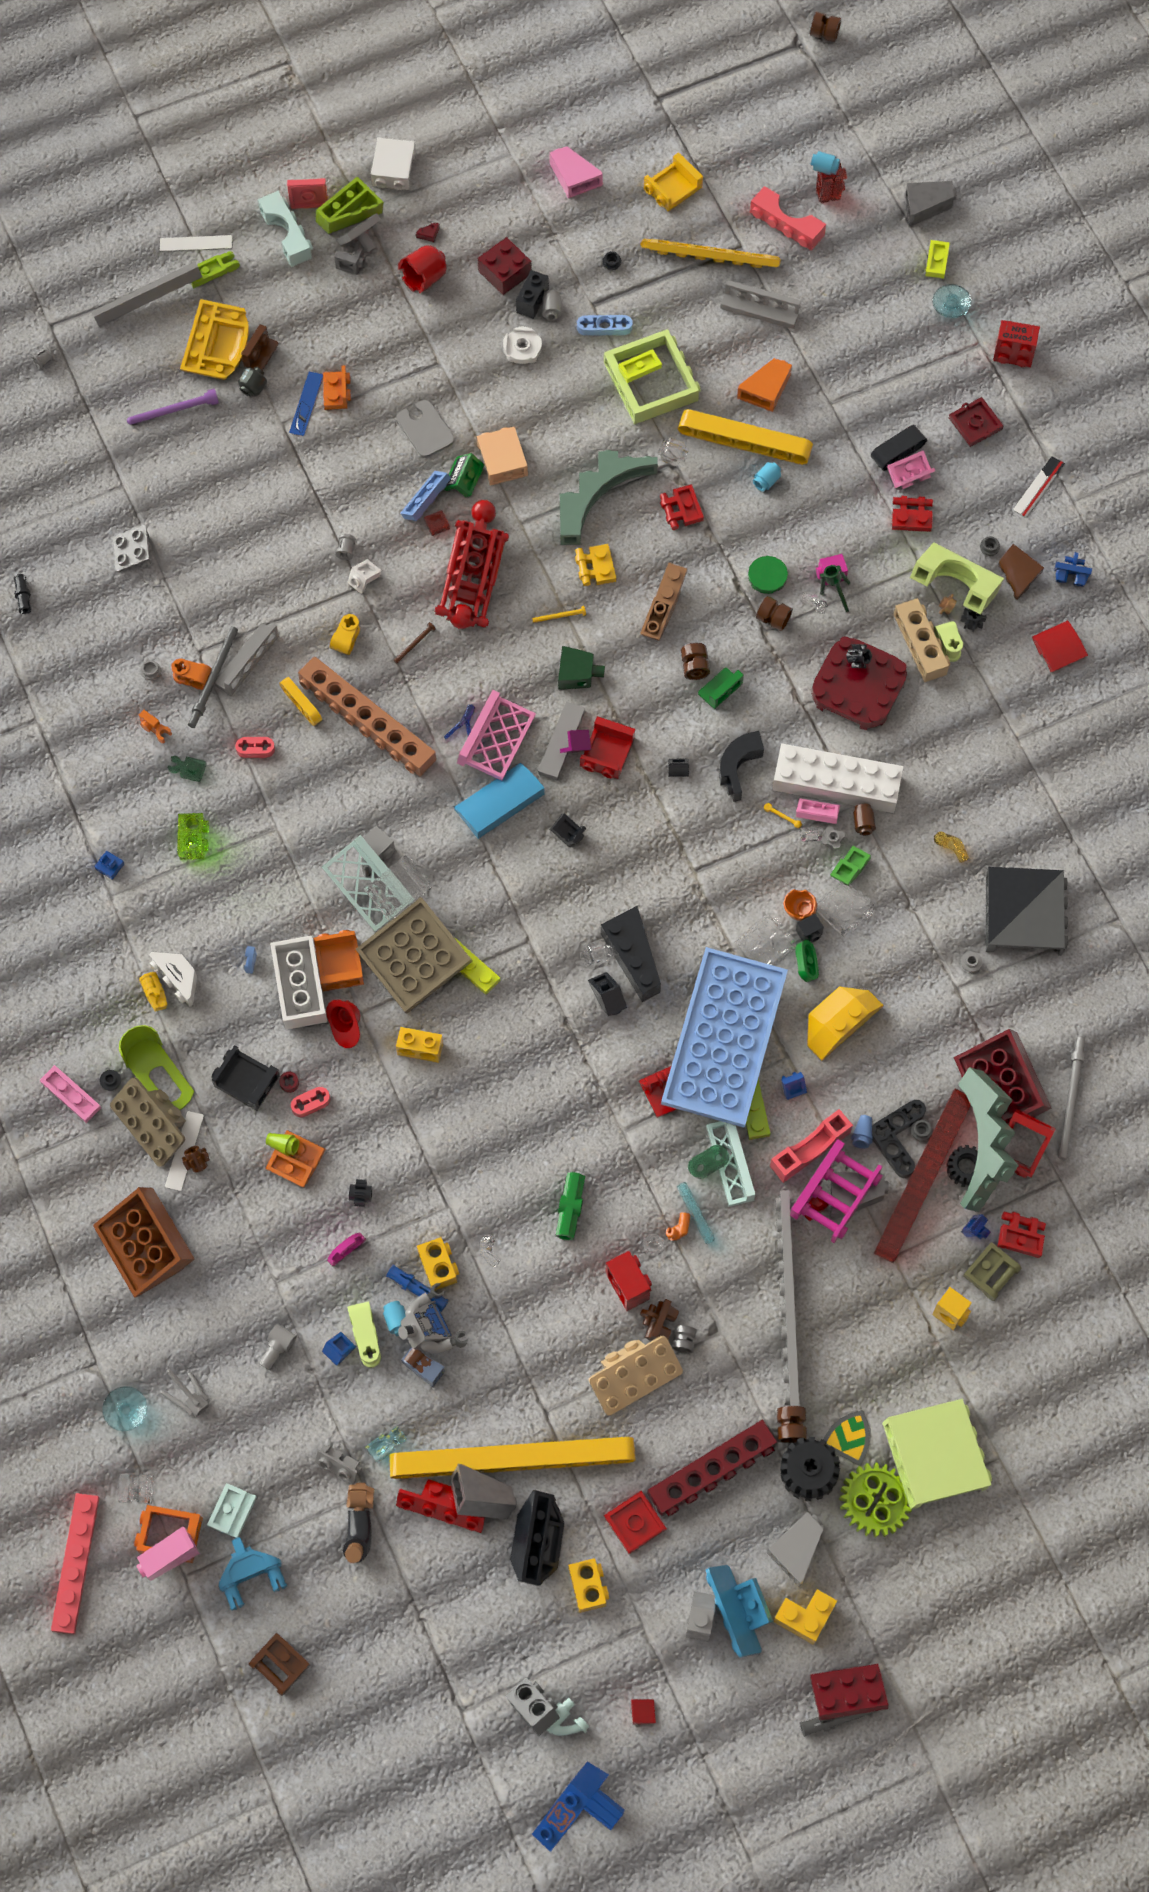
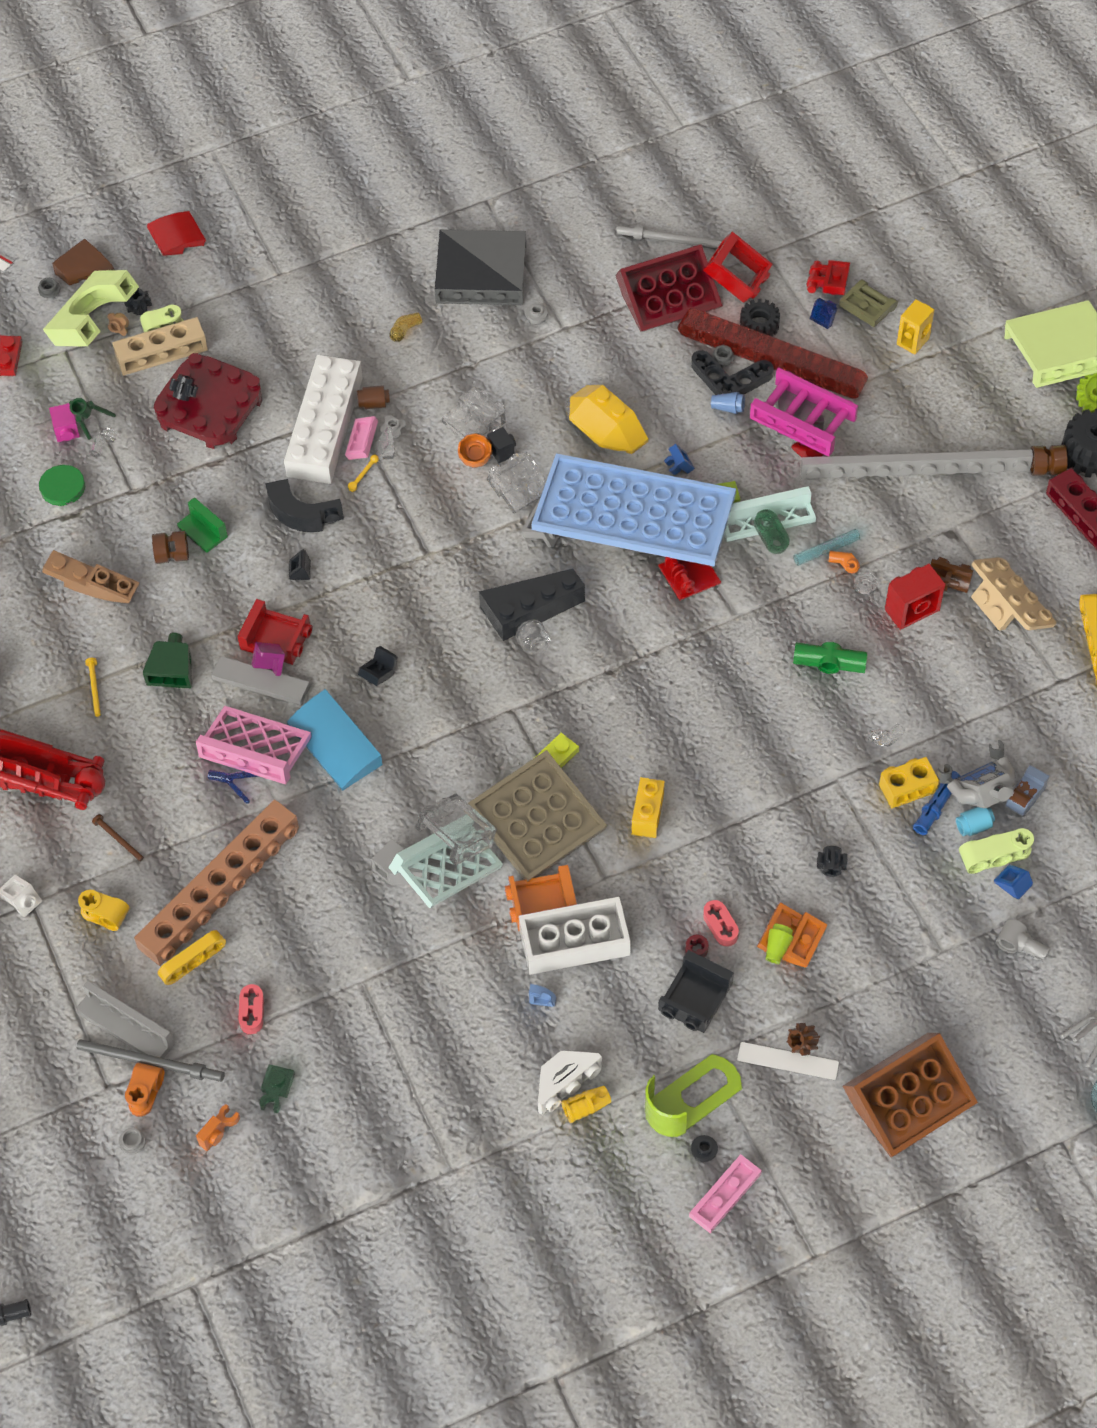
camera: 90 degrees left, 10 degrees down
(109, 865) = (410, 1173): blue tile -> none
(150, 1120) = (757, 1094): dark tan bracket -> none
(188, 836) = (374, 1079): clear neon green brick -> none
(344, 1021) = (628, 882): red piece -> none
(345, 1248) = (898, 875): dark pink tile -> none
(602, 565) = (29, 645): yellow plate -> none
(608, 994) = (579, 626): black slope -> none
(684, 1339) = (966, 553): flat silver wheel -> none
(775, 614) = (115, 474): reddish brown wheel -> none
(797, 1157) = (733, 427): coral arch -> none
(807, 961) = (547, 447): green plate -> none
(850, 1437) = (1048, 421): sticker -> none
(851, 866) = (427, 411): bright green slope -> none
(994, 1134) = (764, 283): sand green arch -> none
(1063, 569) = (84, 217): blue hips -> none

